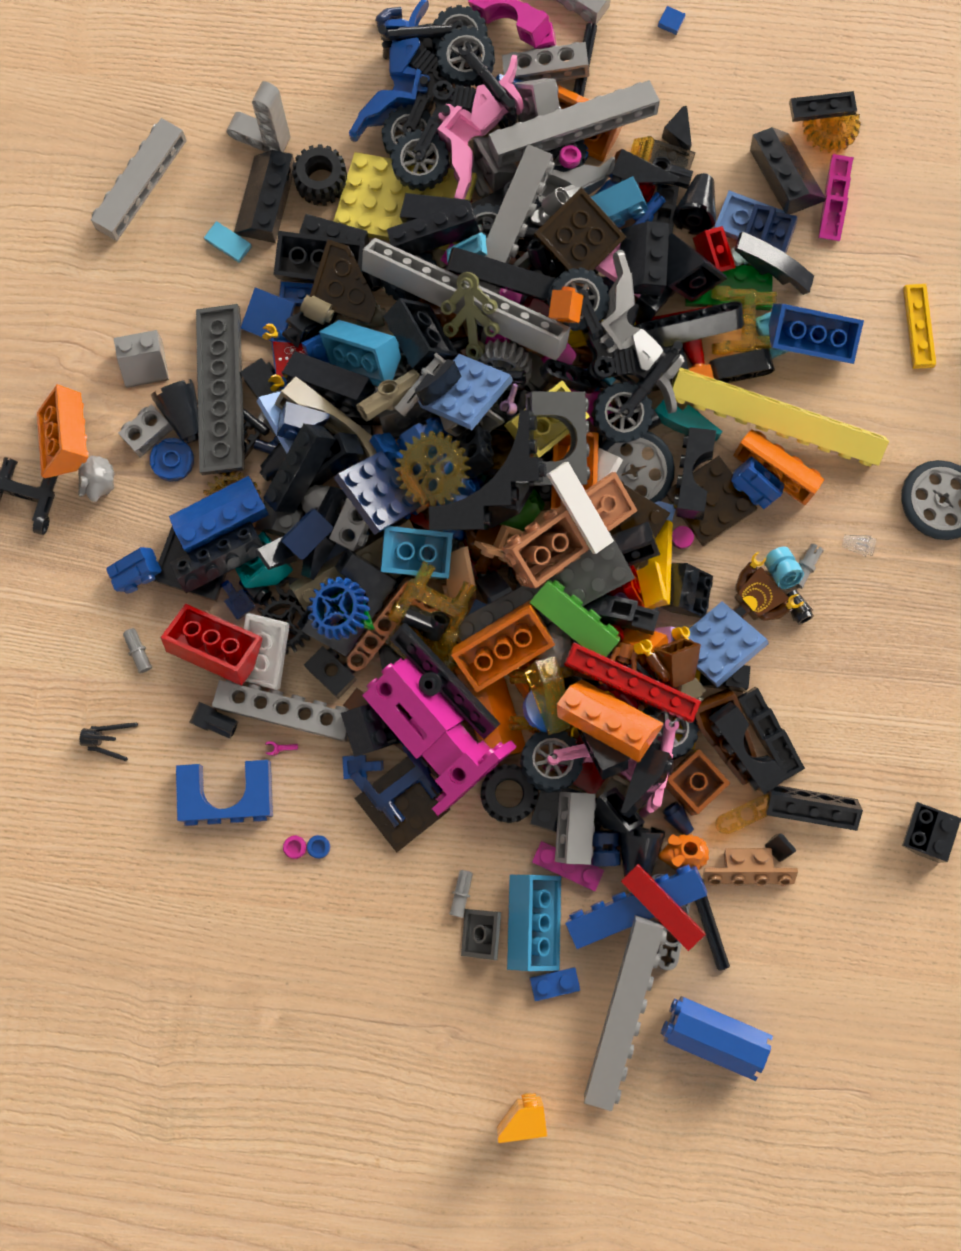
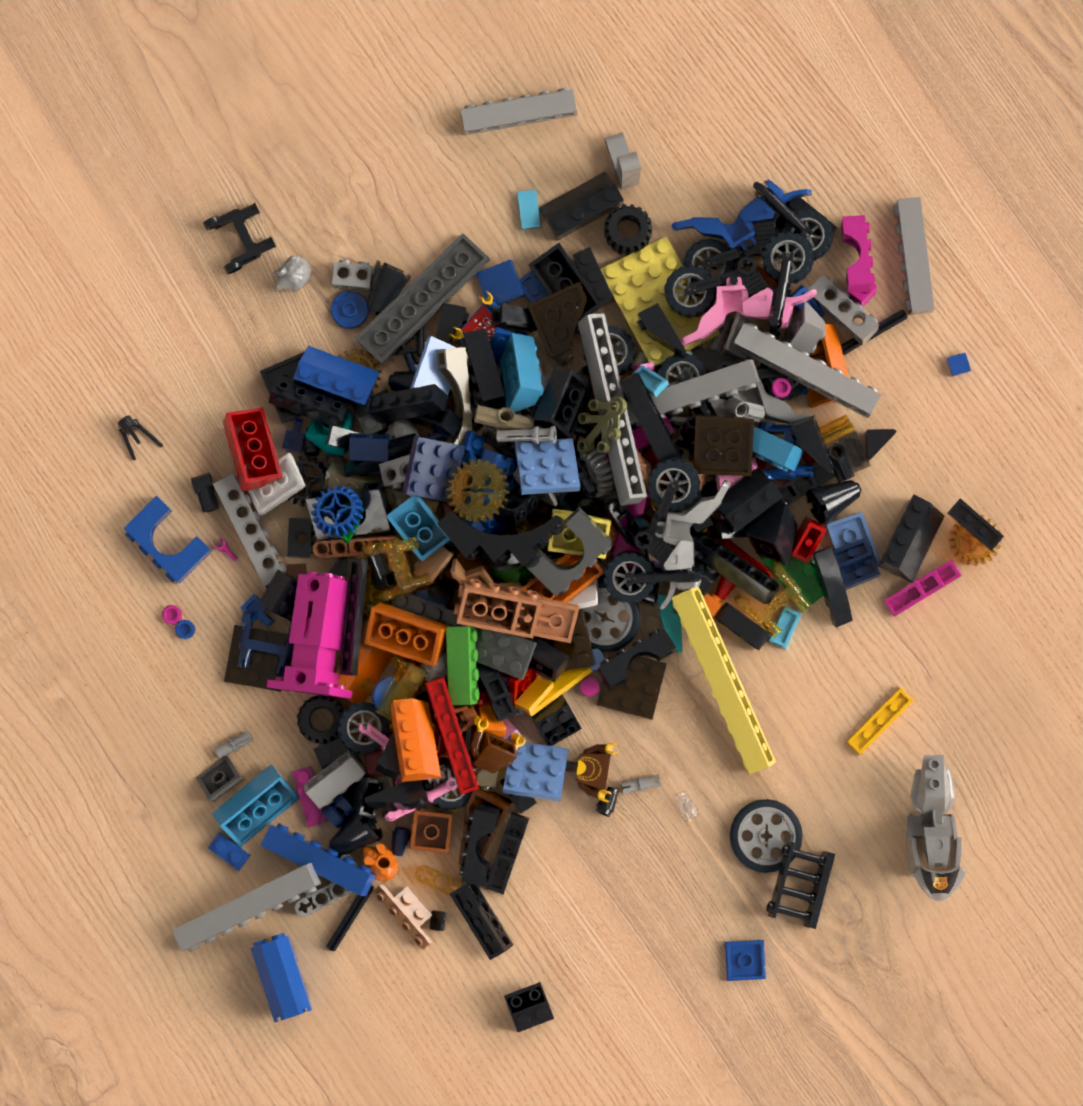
camera: 55 degrees right, 5 degrees up
(61, 432) = (301, 226): orange slope -> none
(134, 570) = (255, 354): blue brick -> none
(137, 651) = (207, 403): light grey axle -> none
(141, 358) = (398, 229): light grey slope -> none
(294, 415) = (437, 373): slope -> none
(317, 309) = (526, 317): dark tan brick -> none
(388, 13) = (786, 167): dark blue arm -> none
(426, 685) = (342, 610): black hose -> none
(435, 229) = (647, 344): black brick -> none
(435, 386) = (528, 445): black slope -> none
(512, 406) = (570, 499): lavender hand -> none
(523, 1120) = (130, 901): light orange slope -> none
(566, 305) = (656, 482): orange brick -> none
(580, 507) = (531, 606): white tile -> none
(663, 907) = (330, 875): red tile -> none
(757, 483) = (666, 704): blue brick -> none
(784, 568) = (623, 770): medium azure wheel -> none
(798, 479) = (692, 709): orange slope -> none
(814, 333) = (805, 655): blue slope -> none

